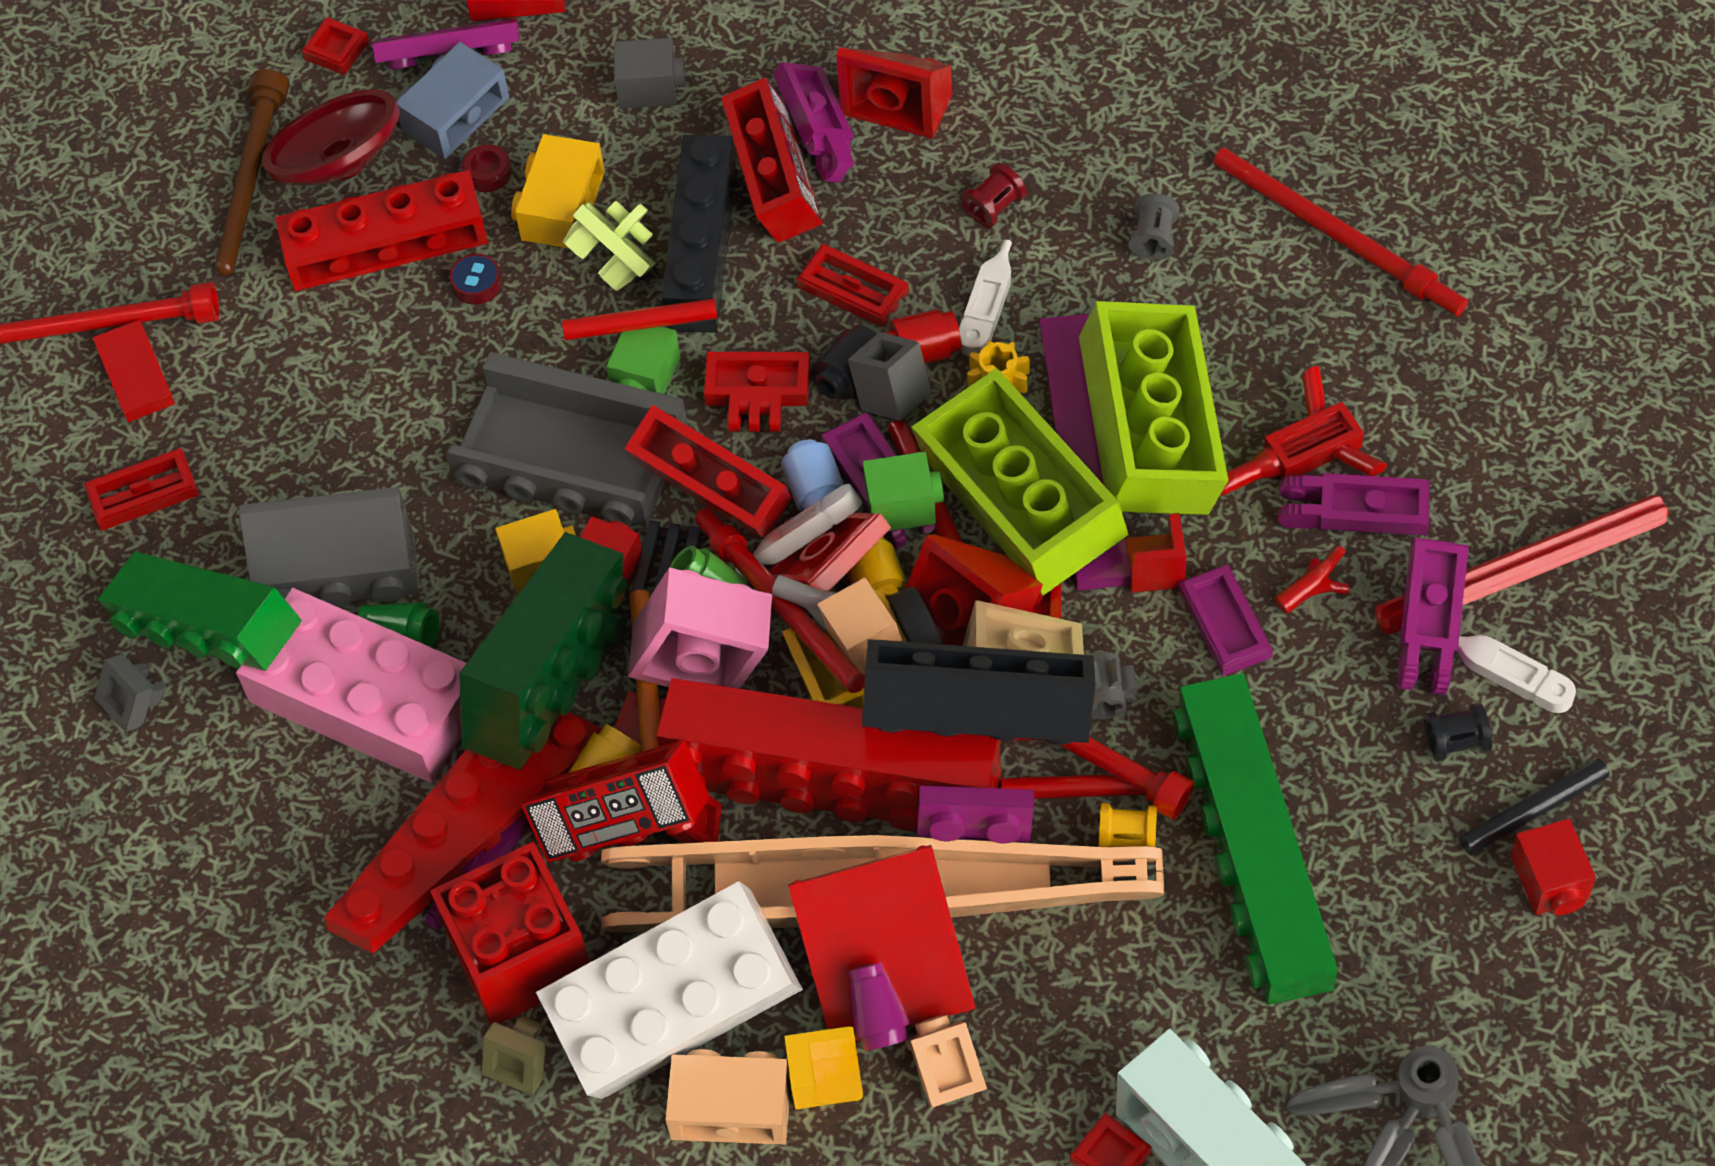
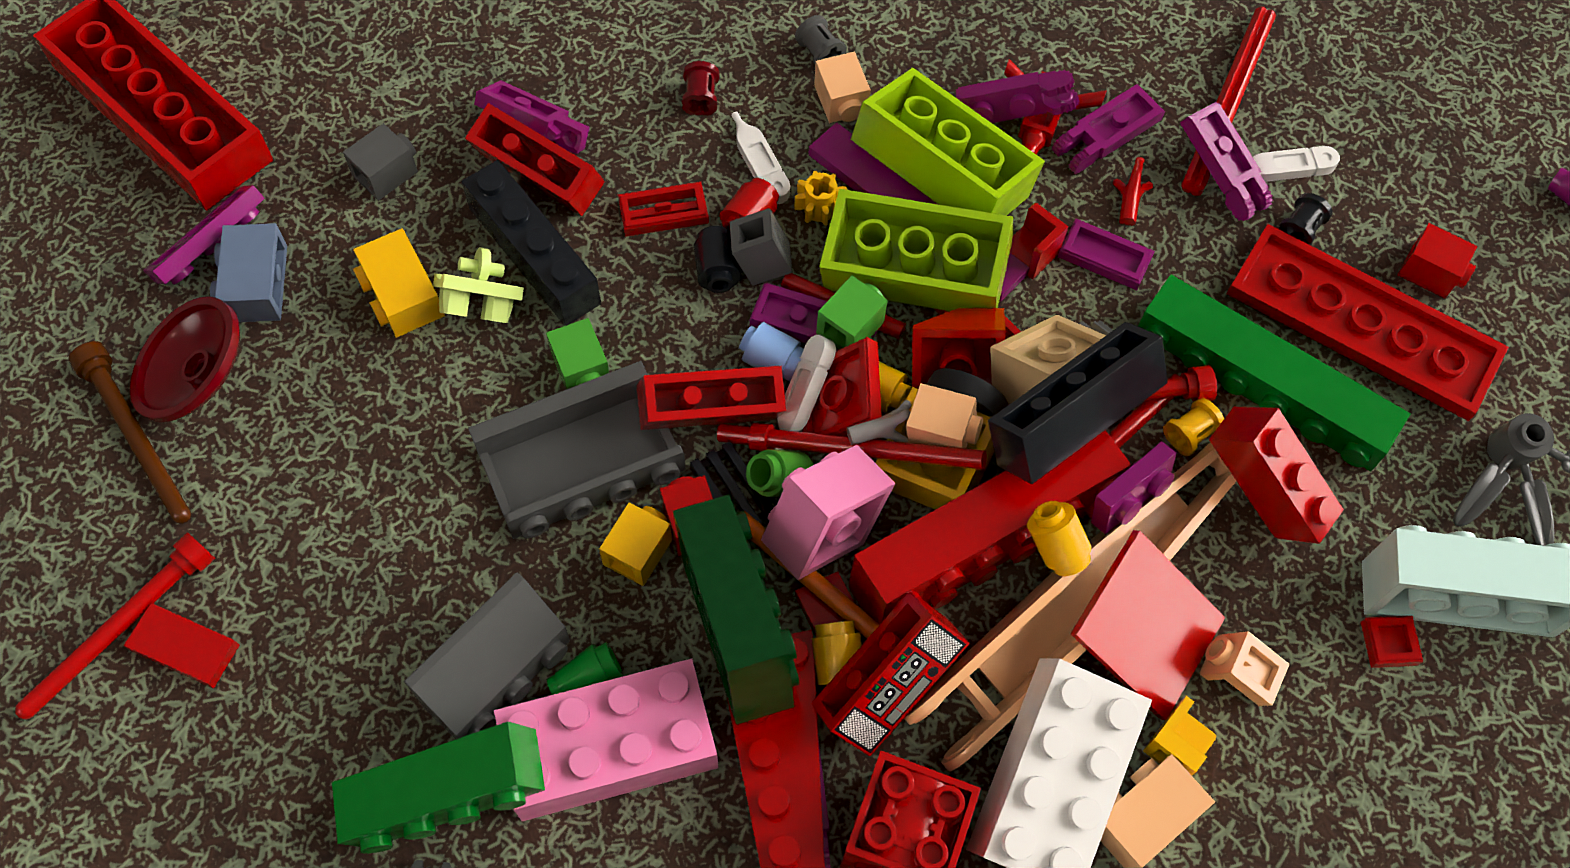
camera: 50 degrees left, 5 degrees up
(144, 495) = (292, 740): red tile -> none
(335, 46) = (113, 295): red tile -> none
(381, 230) = (286, 401): red brick -> none
(475, 279) = (391, 387): tile -> none
(488, 167) = (321, 304): dark red tile -> none
(639, 319) = (558, 327): red bar -> none
(757, 385) = (671, 318): red hinge -> none
(854, 797) = (1060, 538): none -> yellow brick
(876, 1008) = (1186, 670): magenta cone -> none
(894, 89) = (573, 61): red slope -> none
(1128, 275) = (841, 86): none -> light nougat brick
(1128, 911) = (1276, 474): none -> red brick
(1274, 405) = (1021, 96): none -> magenta hinge
(1415, 870) = (1369, 322): none -> red plate
(1534, 806) = (1382, 229): black bar -> none

